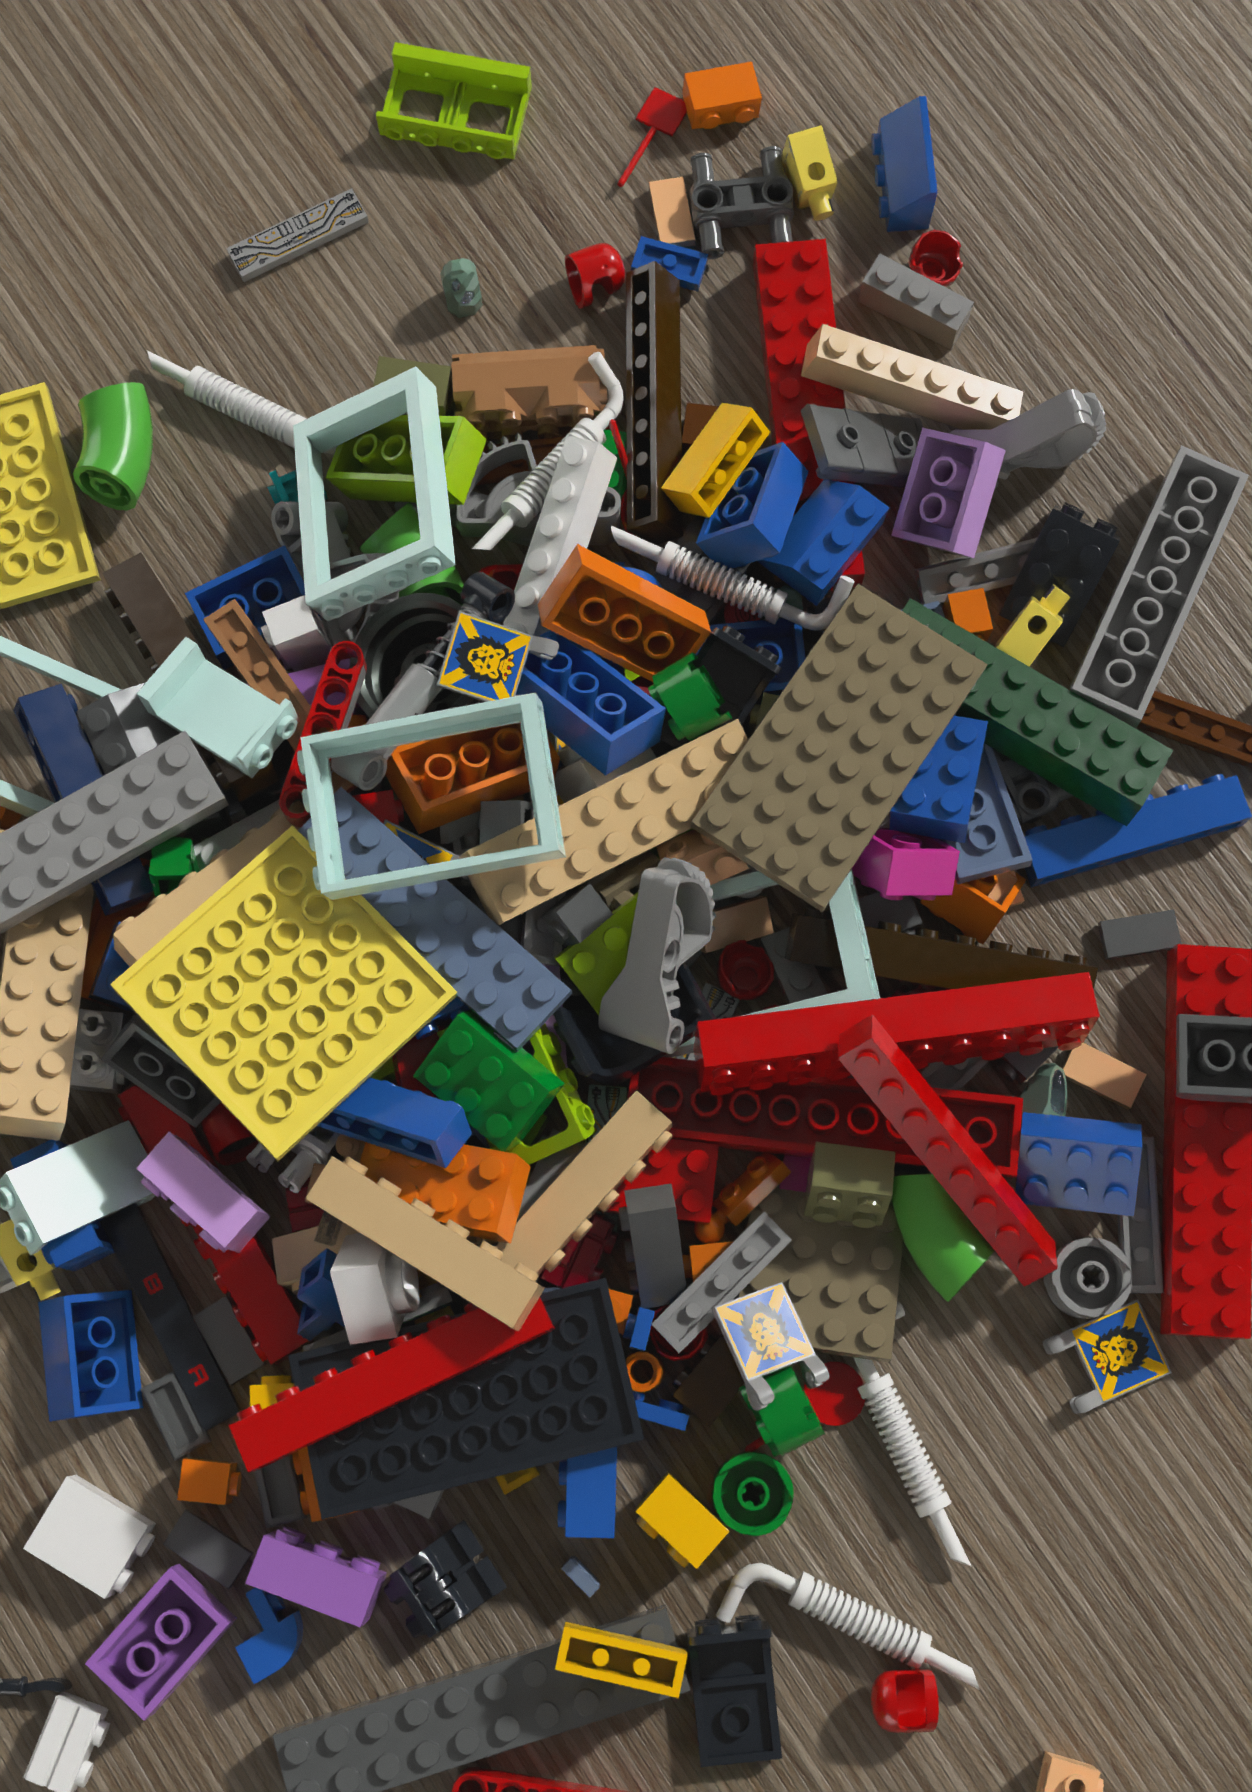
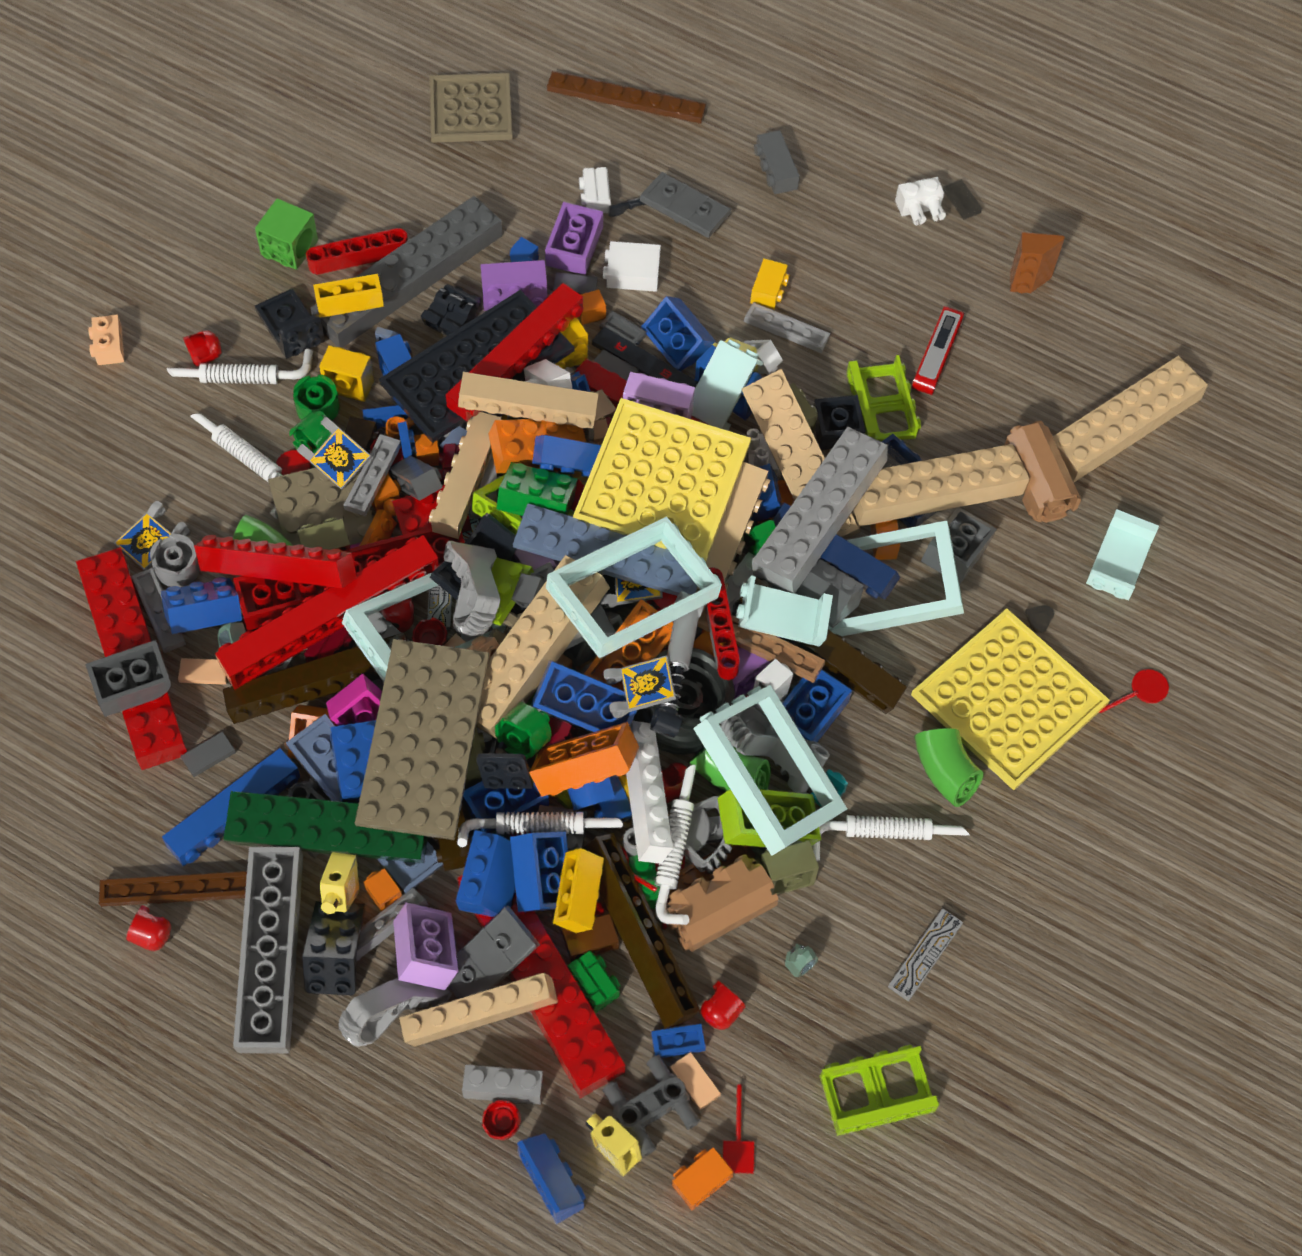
camera: 150 degrees right, 15 degrees down
(741, 374) = (594, 981): none -> green brick

